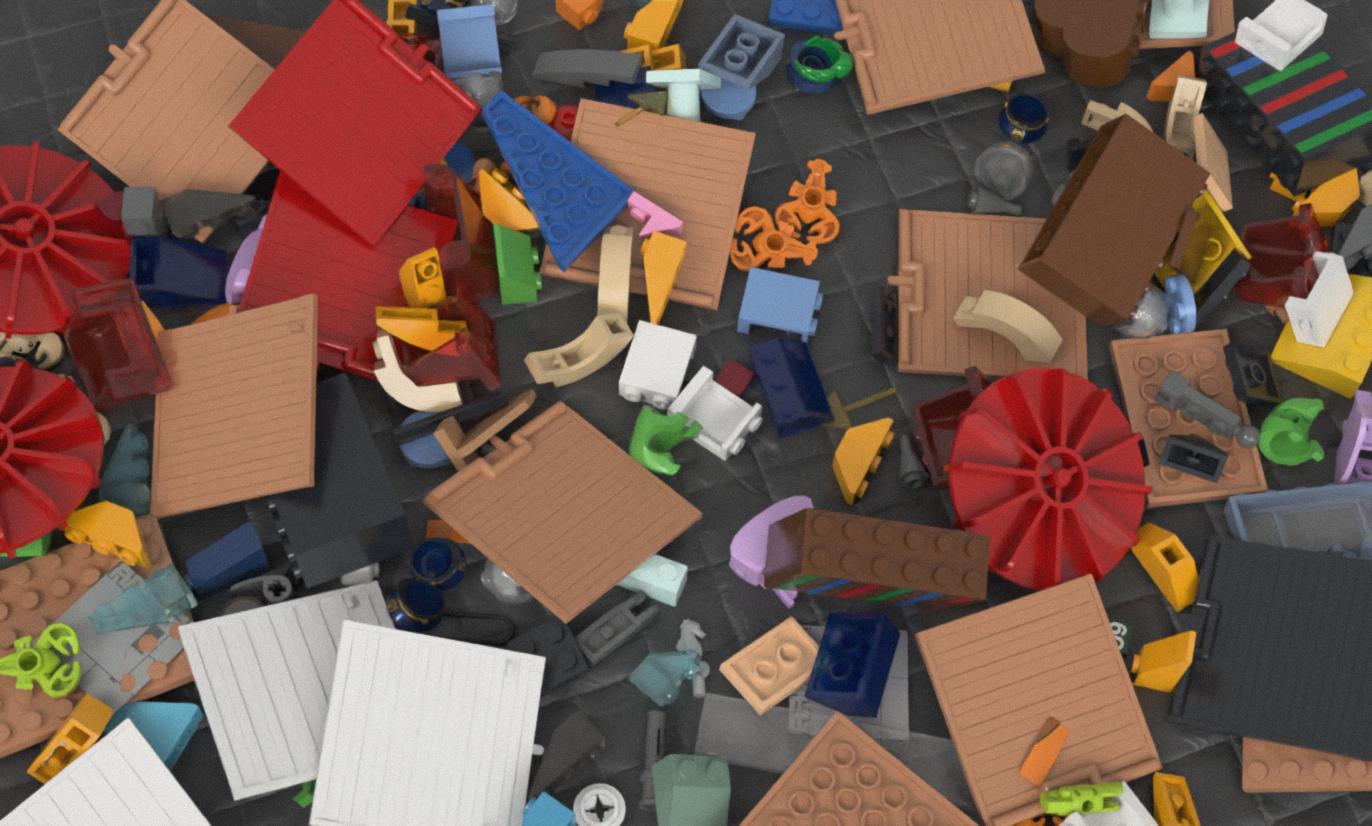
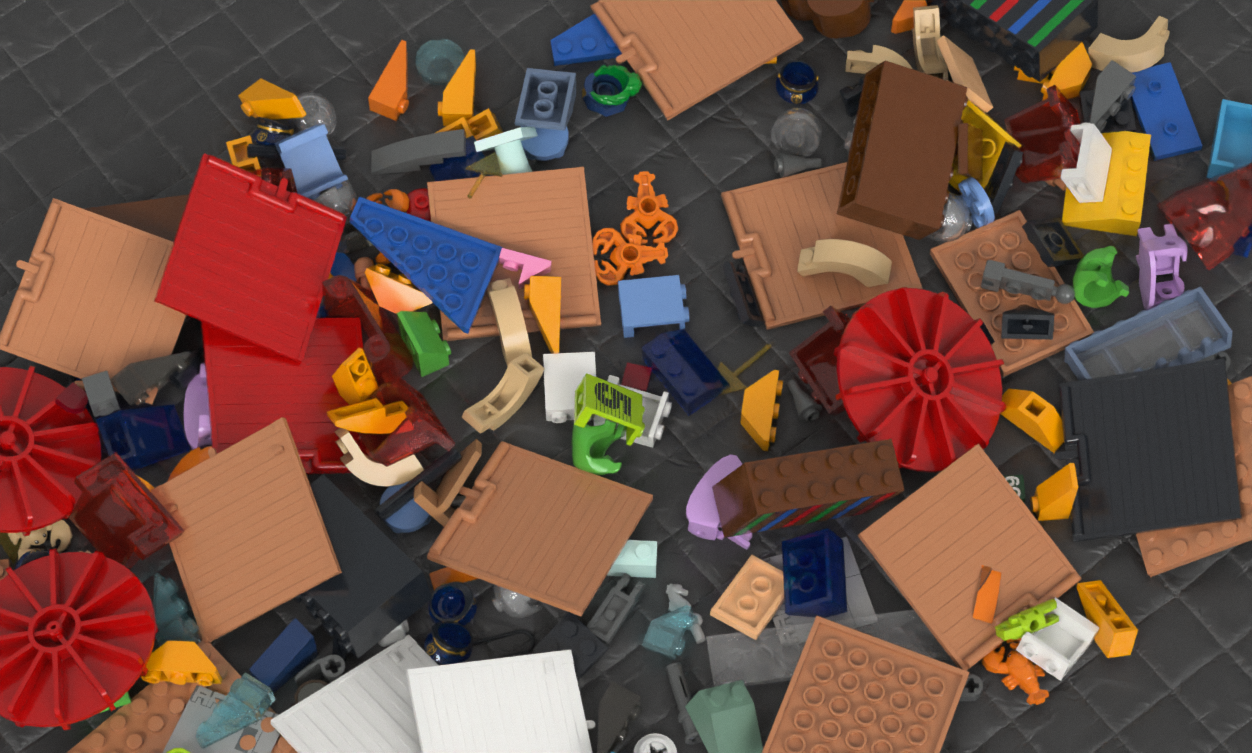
camera: 15 degrees left, 0 degrees up
(691, 396) = (609, 402): none -> lime panel

